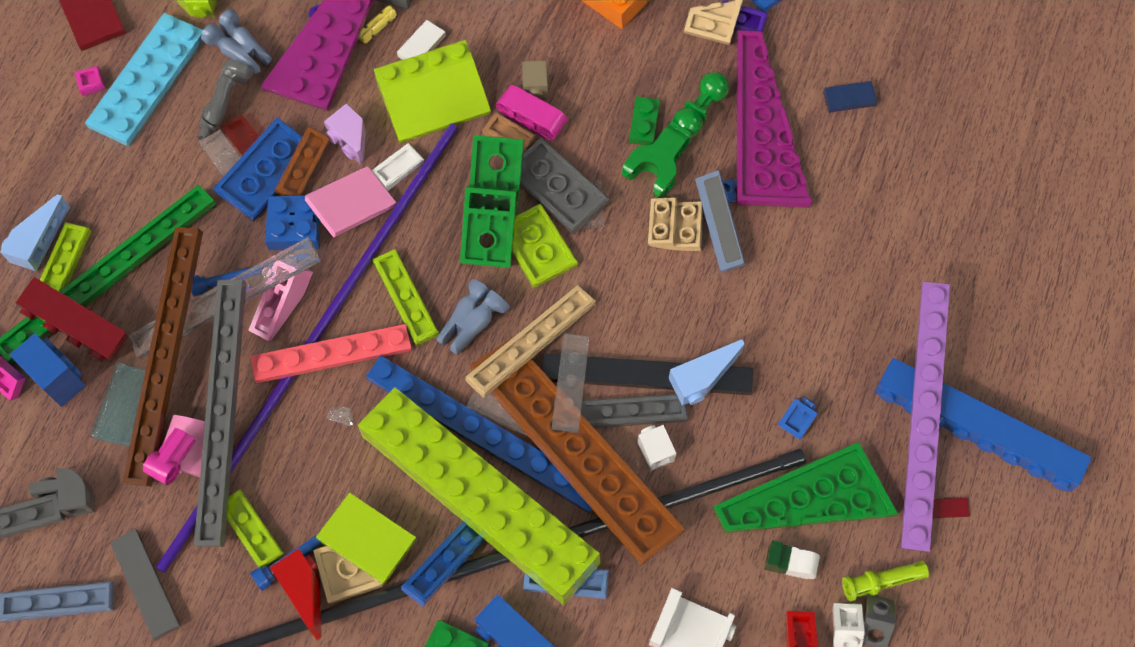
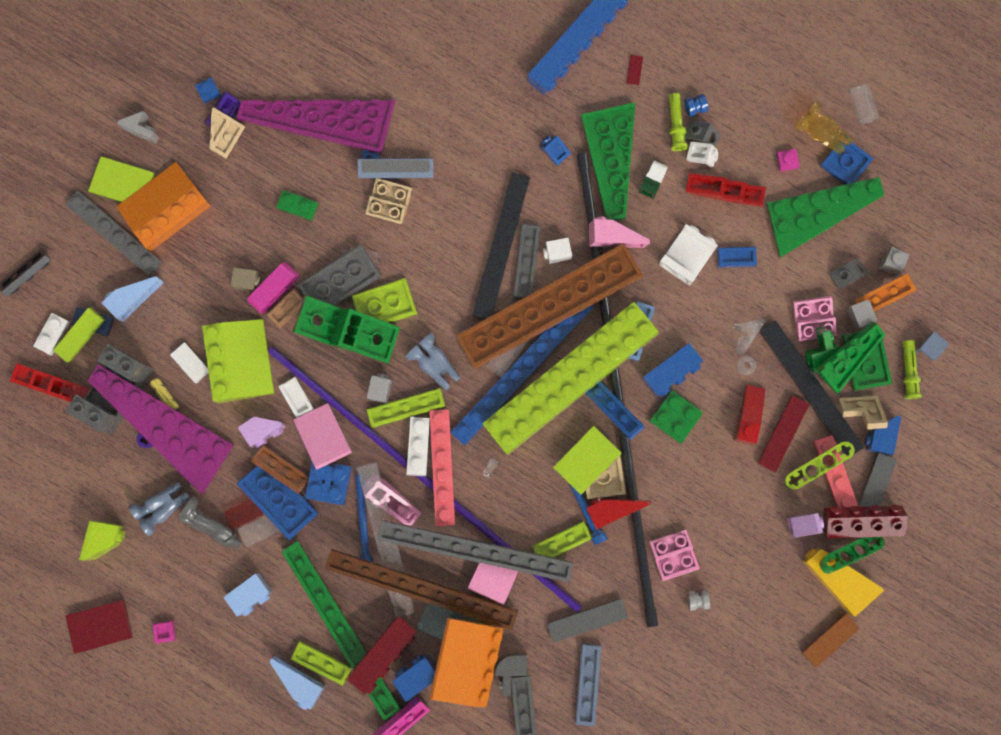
camera: 75 degrees left, 15 degrees up
(68, 425) = (466, 663): none -> orange slope
(141, 158) = (248, 594): none -> light blue brick
(145, 79) = (172, 585): medium azure plate -> none
(165, 463) = (506, 594): dark pink piece -> none
(354, 318) = (418, 446): none -> white plate
(423, 258) = (379, 388): none -> light grey brick
(530, 341) = (462, 322): tan tile -> none
(570, 383) = (501, 299): clear tile -> none
(673, 141) = (310, 175): green piece -> none
(694, 511) = (612, 234): none -> bright pink slope
(699, 376) = (514, 207): light blue slope -> none
(850, 96) = (310, 50): dark blue tile -> none
(918, 602) = (696, 105): none -> blue wheel
(925, 417) = (573, 64): medium lavender plate -> none

